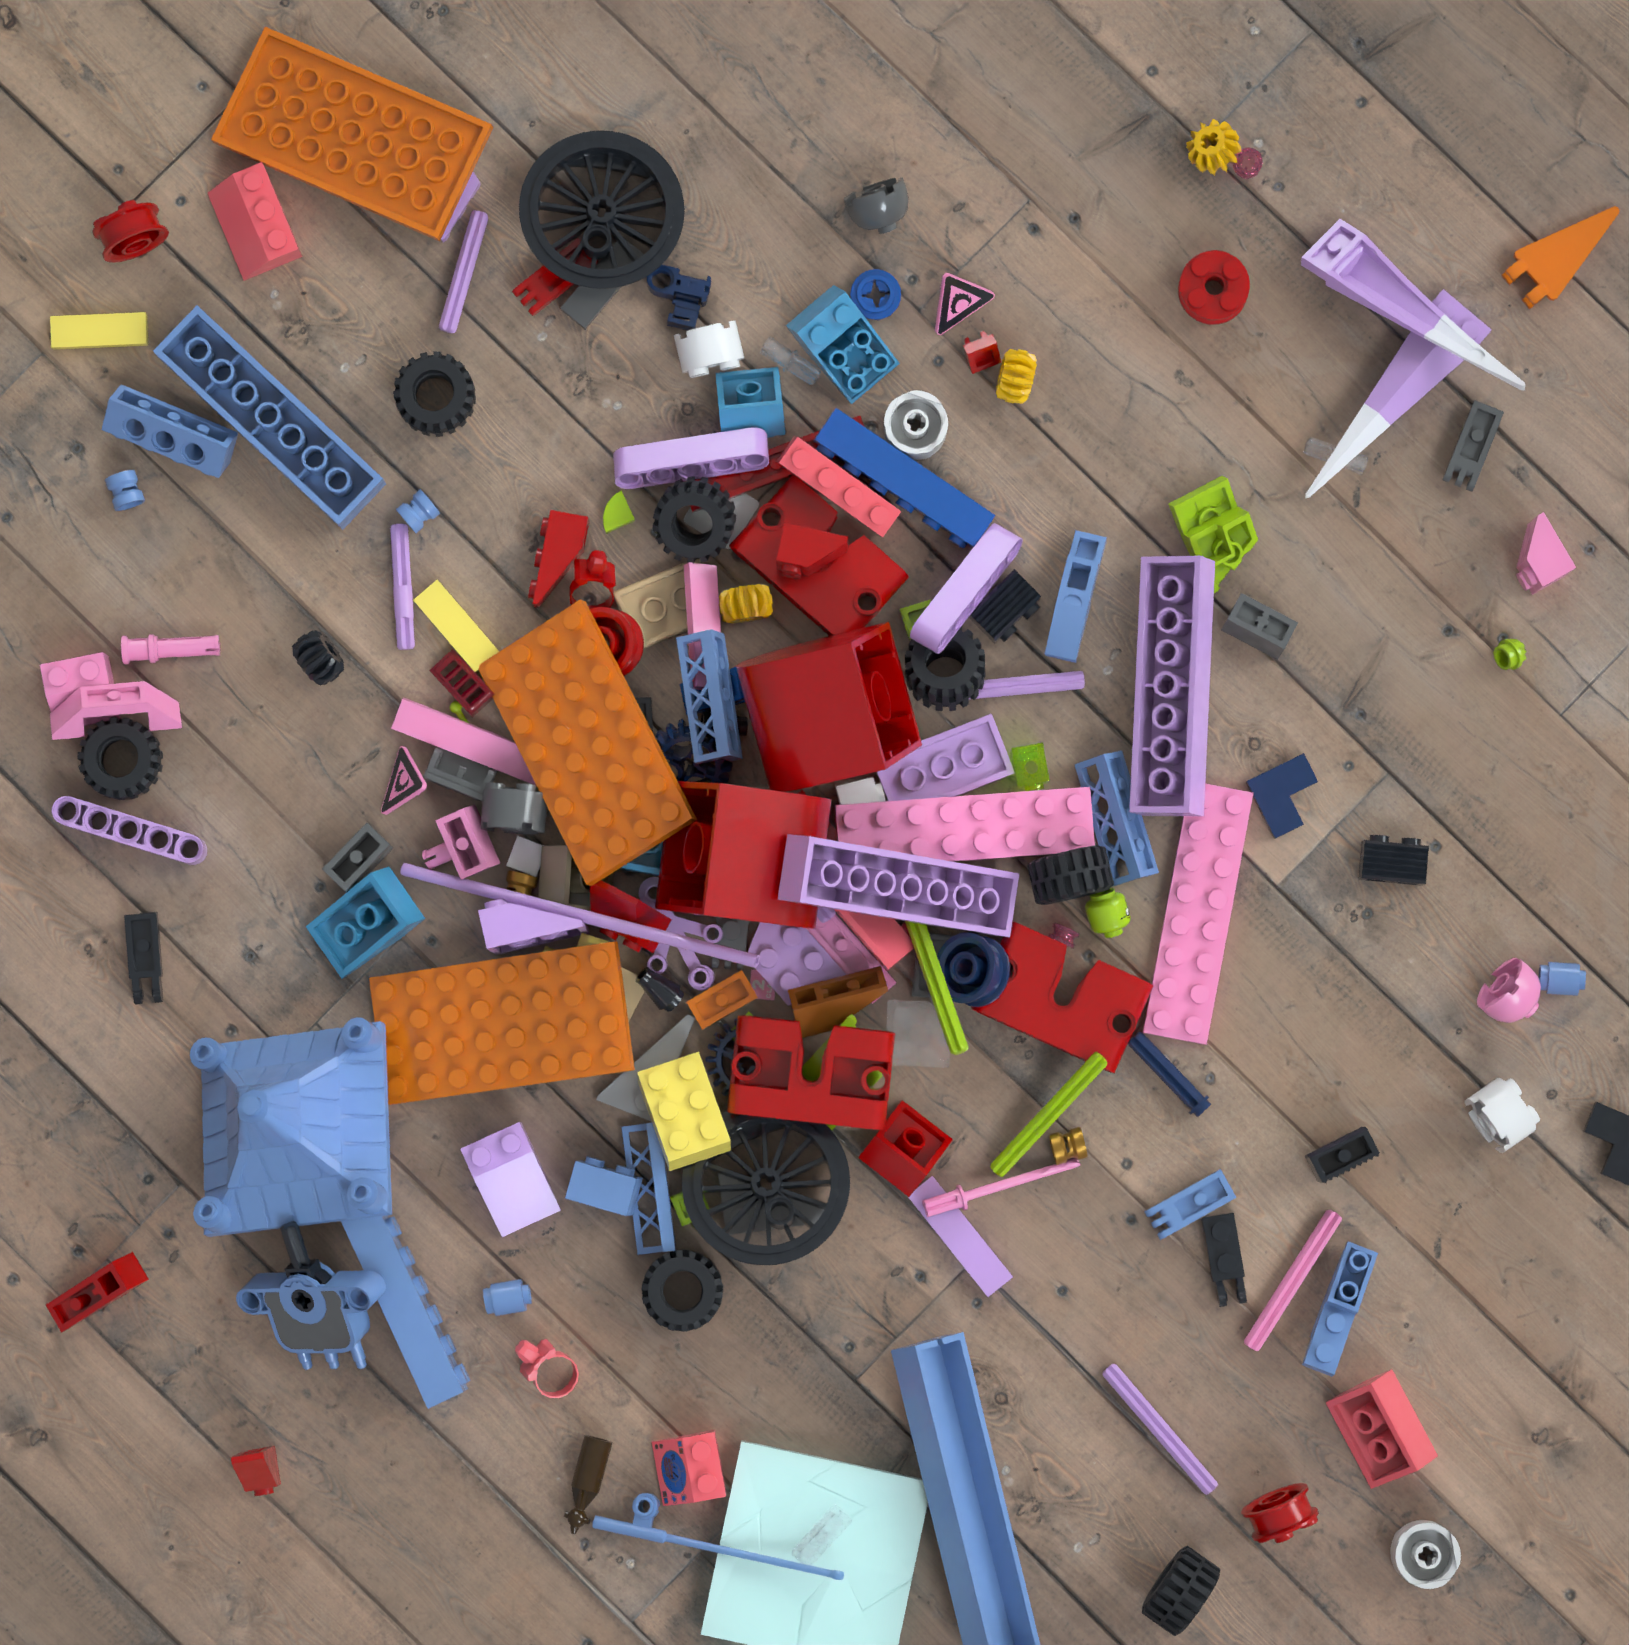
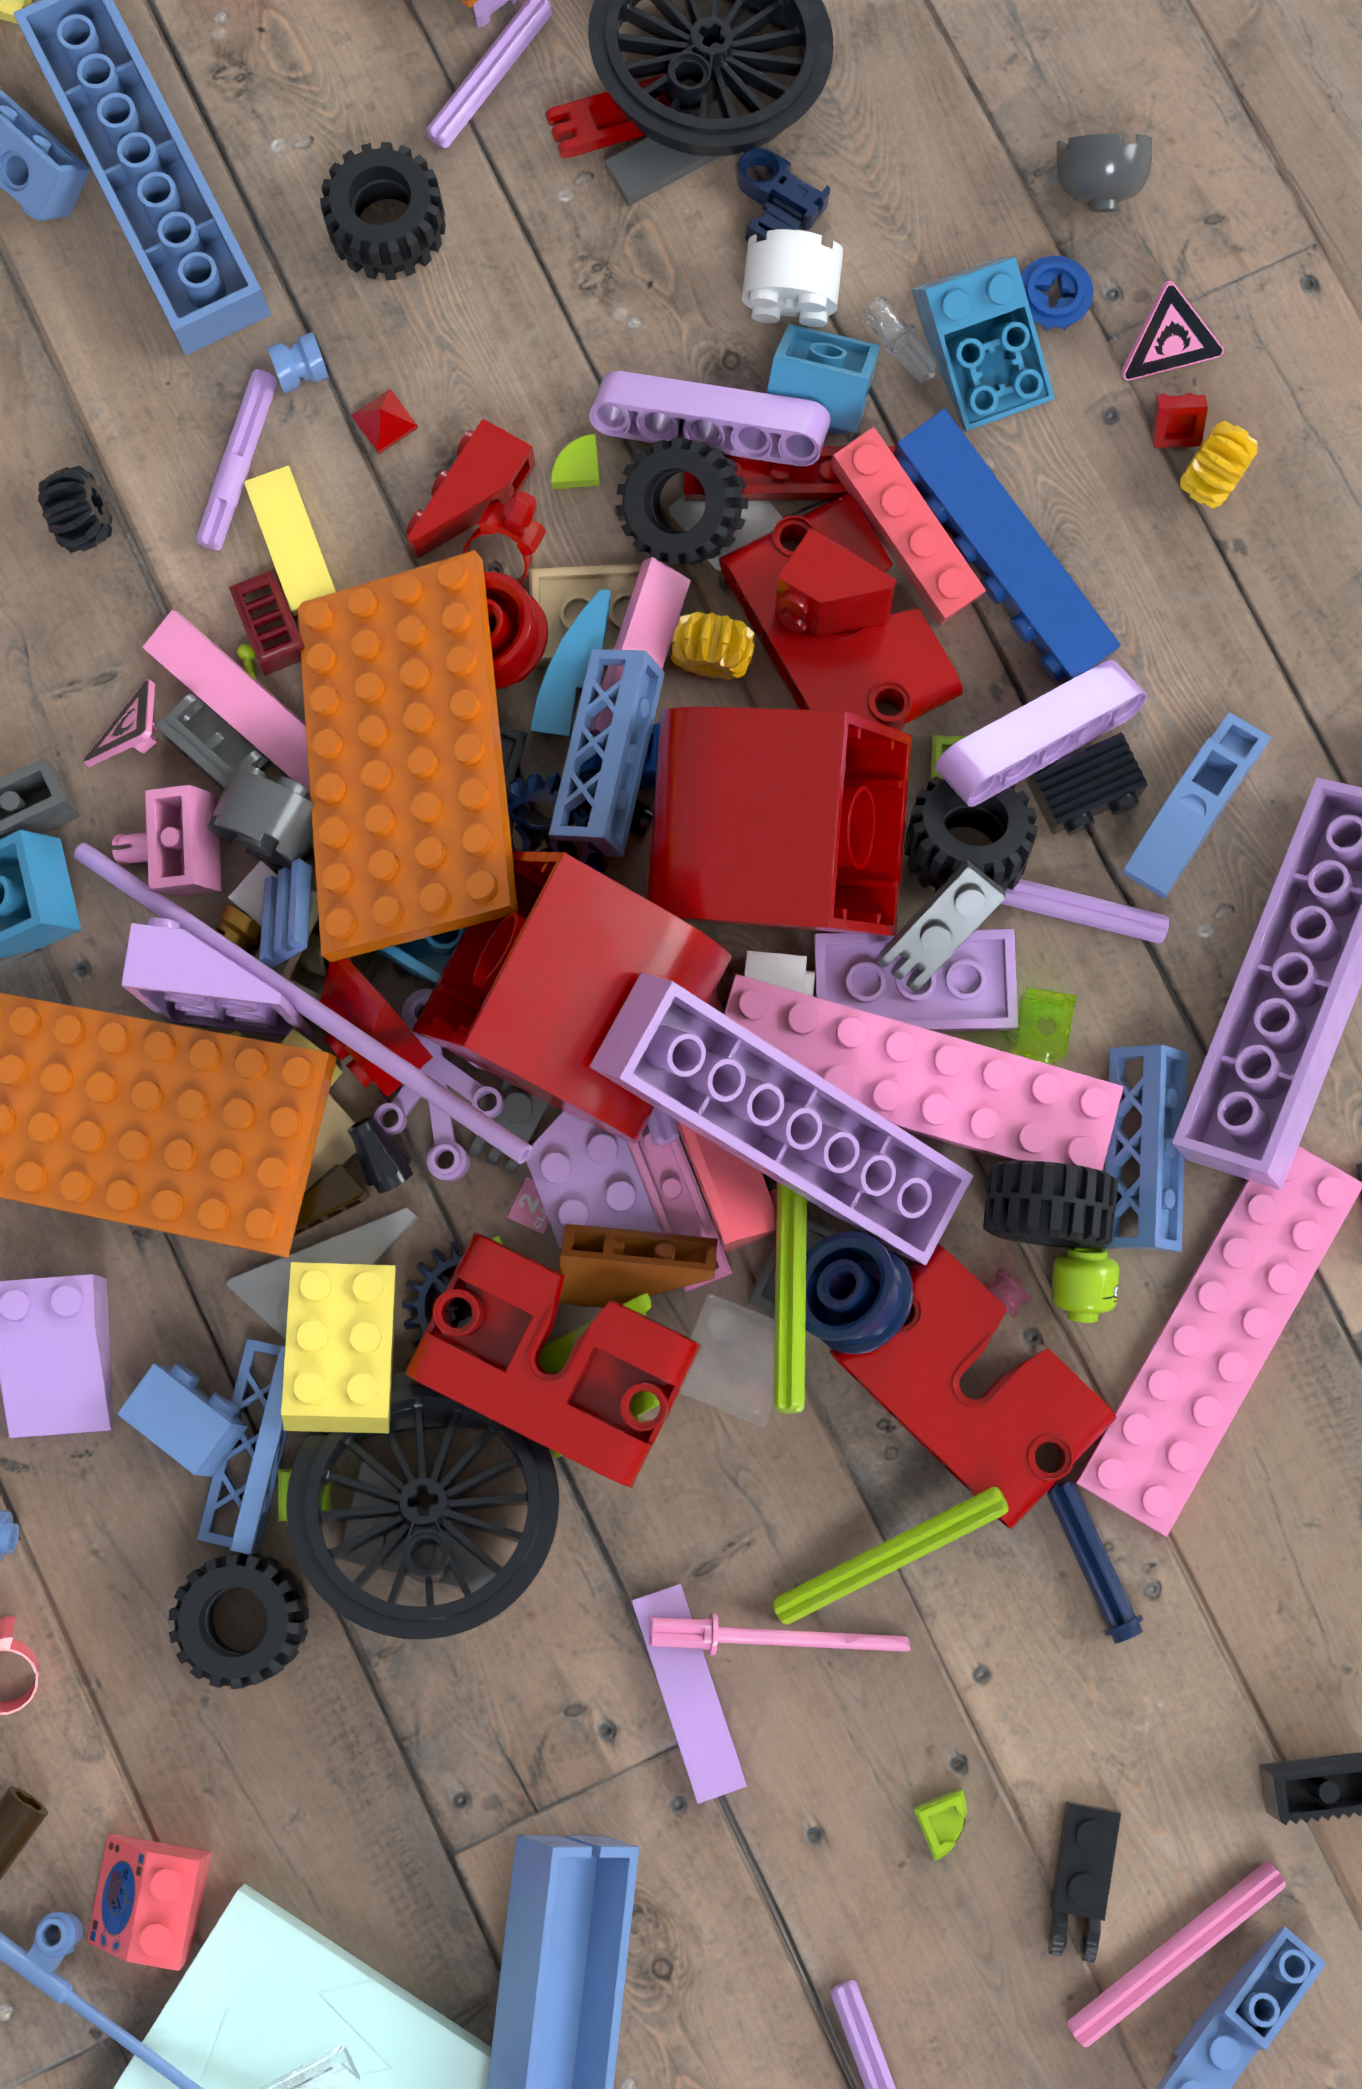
camera: 25 degrees right, 5 degrees down
(484, 527) = (384, 421): none -> red slope
(548, 868) = (285, 913): none -> medium blue tile
(641, 1022) = (329, 1197): none -> dark brown slope
(664, 649) = (568, 668): none -> dark azure slope
(722, 999) = (465, 1204): orange plate -> none
(905, 410) = (1058, 458): white brick -> none
(905, 1148) = (655, 1528): red slope -> none
(947, 730) = (942, 925): none -> hinge
(1075, 1144) = (914, 1614): pearl gold wheel -> none
(1133, 1256) = (942, 1821): none -> lime tile
(1192, 1203) = (1061, 1774): medium blue hinge -> none

